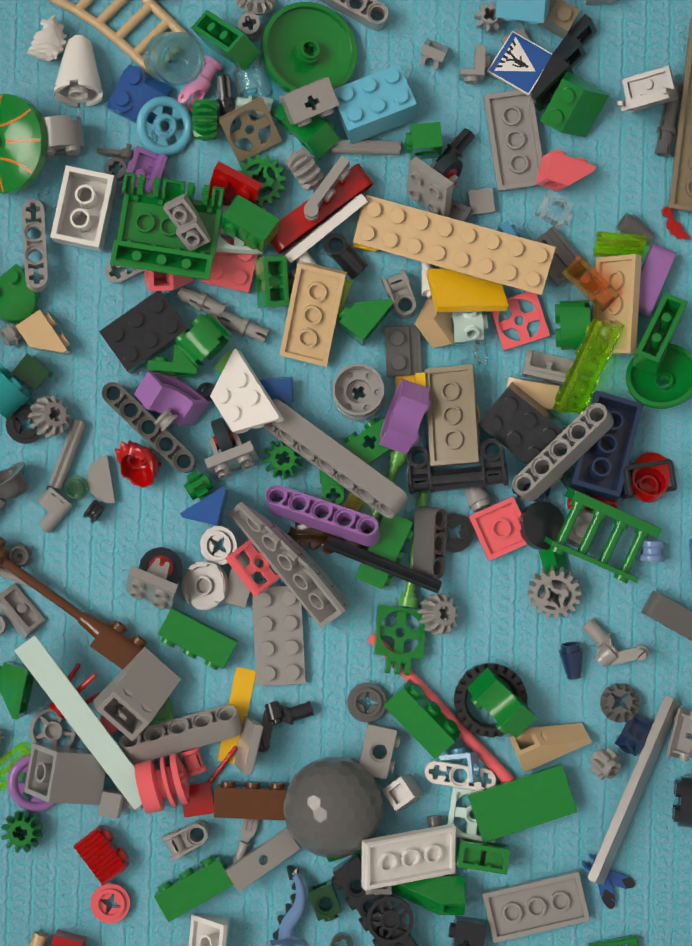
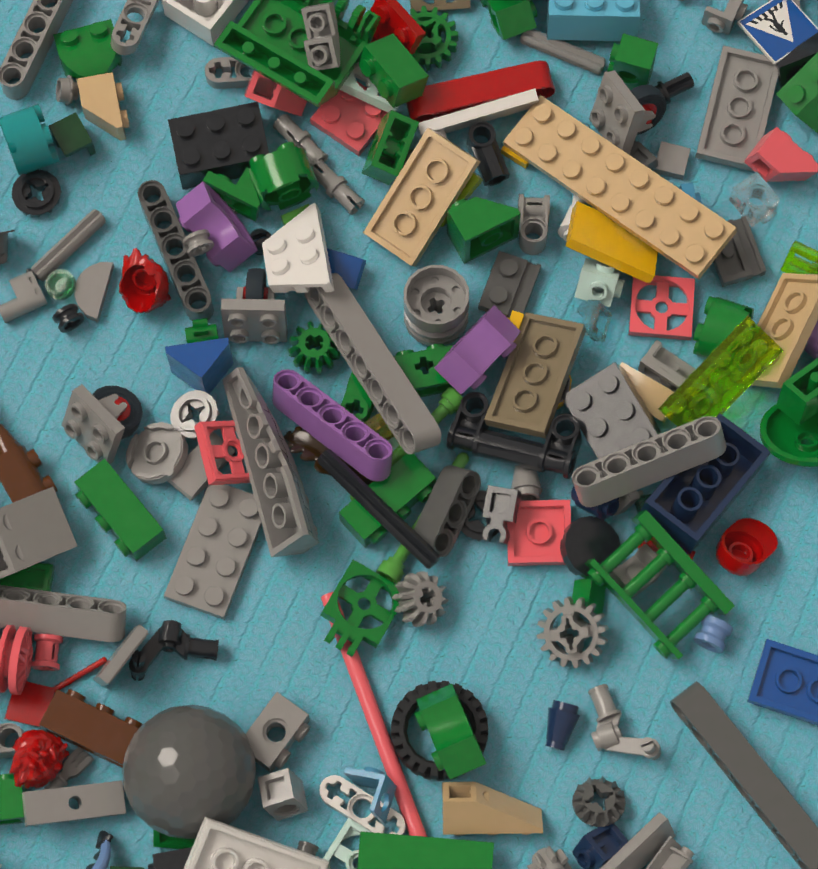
camera: 25 degrees right, 15 degrees down
(51, 425) = (67, 191): light grey gear -> none
(223, 841) = (37, 758): none -> red hair
(240, 699) = (138, 606): yellow sticker -> none
(305, 169) = (482, 43): light grey gear -> none
(326, 188) = (497, 67): light grey plate -> none
(357, 710) = (283, 657): dark grey gear -> none
(422, 718) = (346, 715): green brick -> none
(435, 325) = (560, 271): tan slope -> none
(469, 524) = (501, 507): none -> plate
(590, 283) = (762, 291): clear orange brick -> none
(643, 465) = (710, 538): black piece -> none

